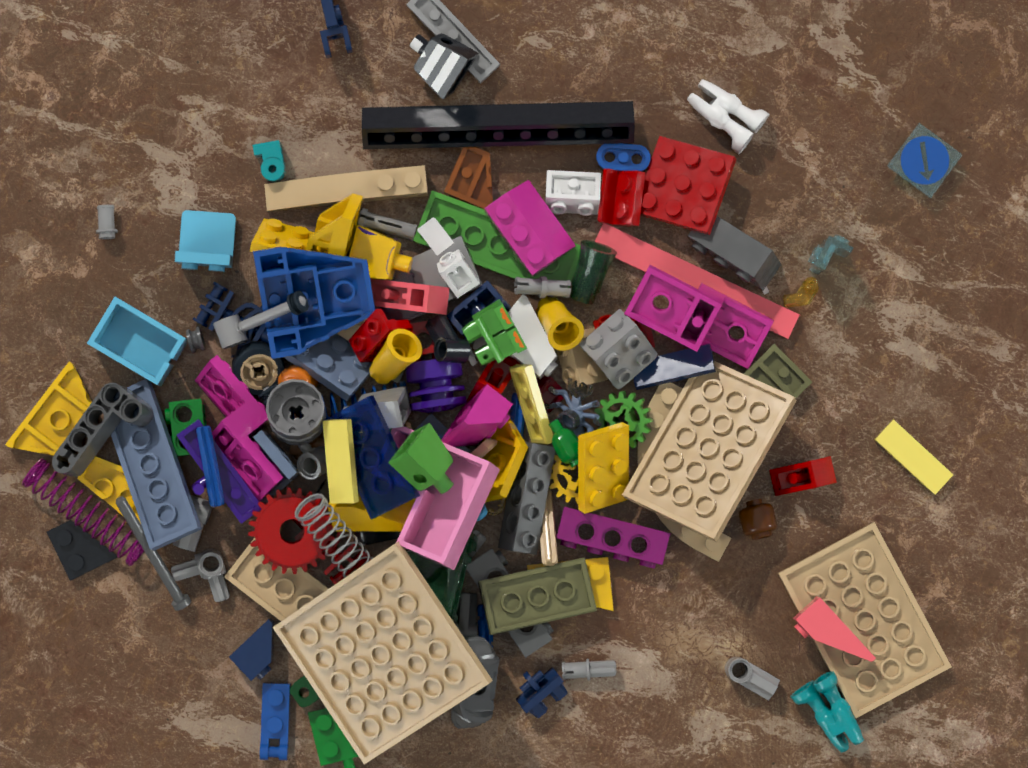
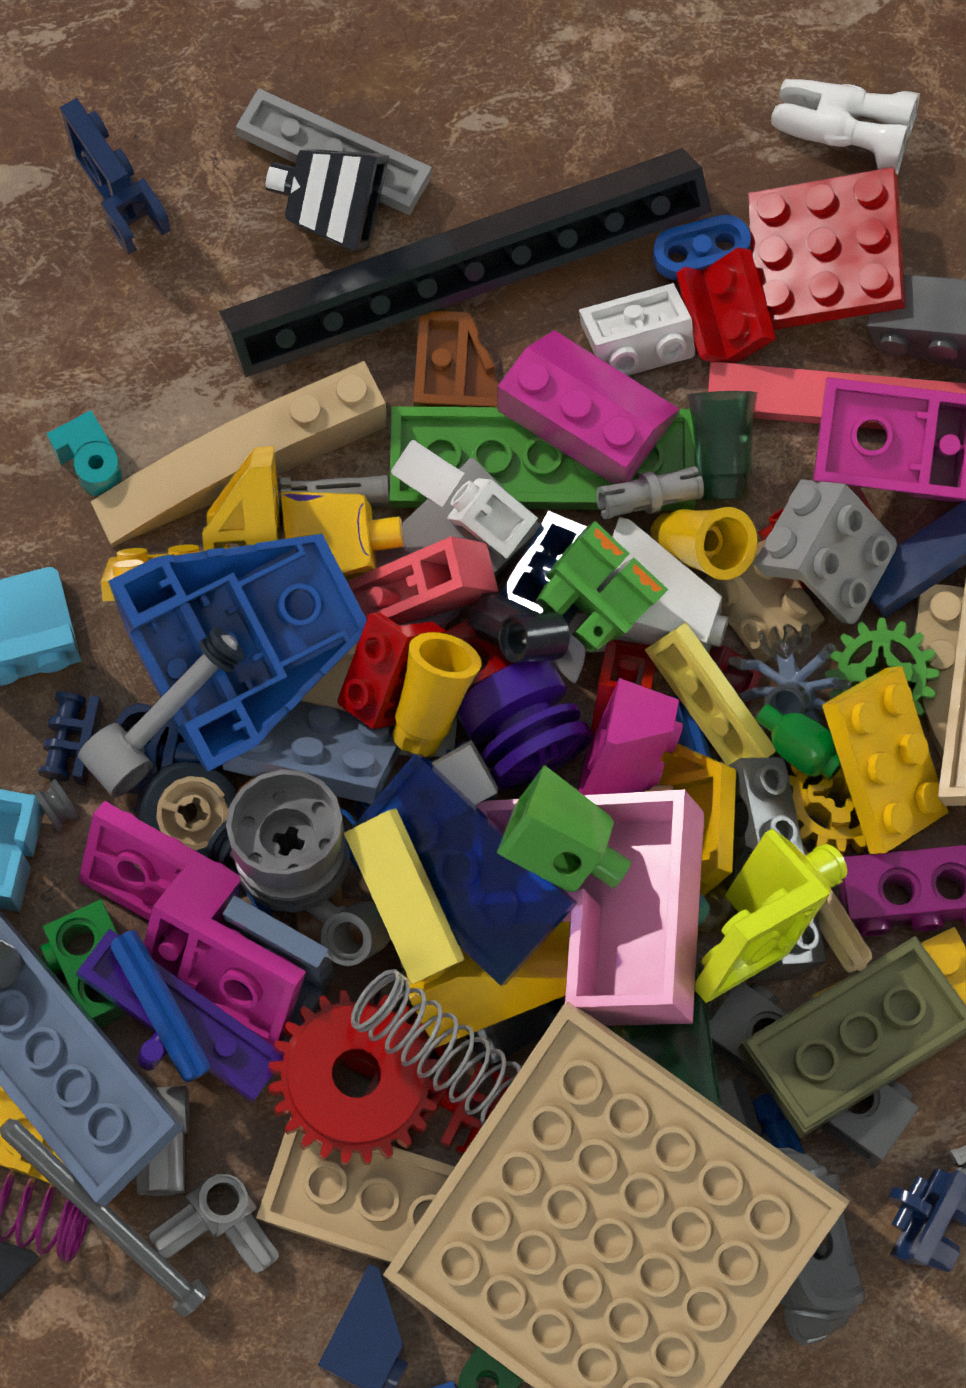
camera: 15 degrees left, 15 degrees down
(522, 522) = (775, 904): none -> neon yellow plate

